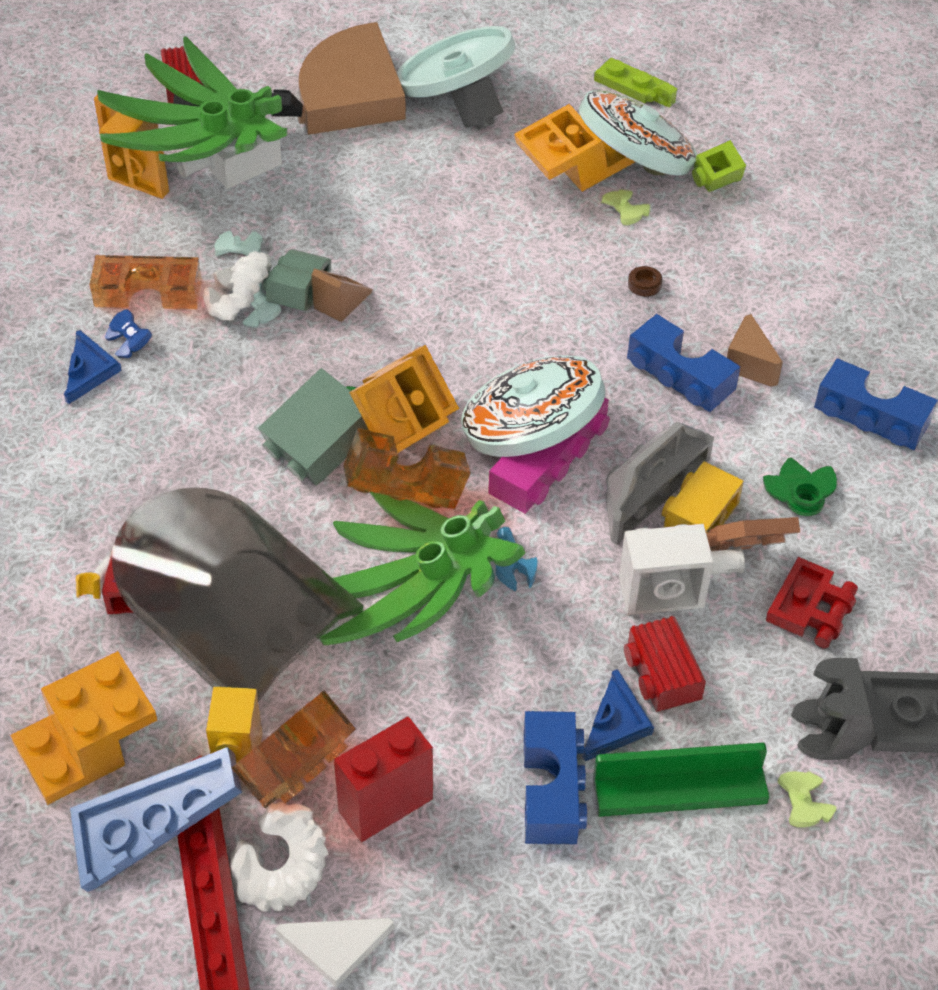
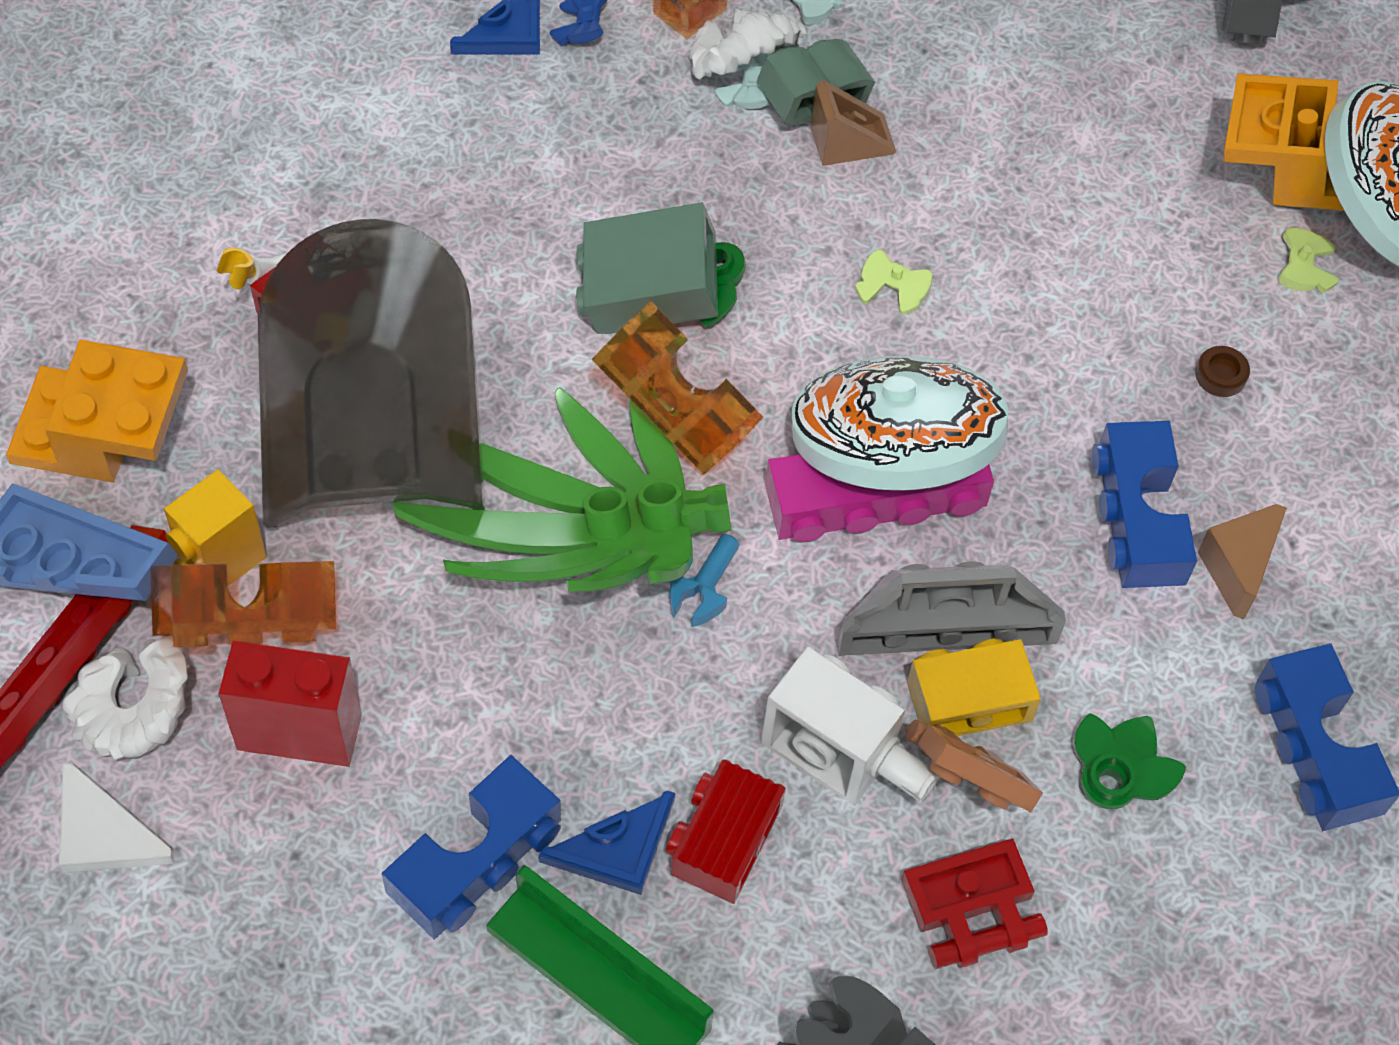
camera: 40 degrees right, 10 degrees up
(405, 398) = (759, 308): light orange bracket -> none
(453, 345) = (880, 271): none -> yellowish green piece

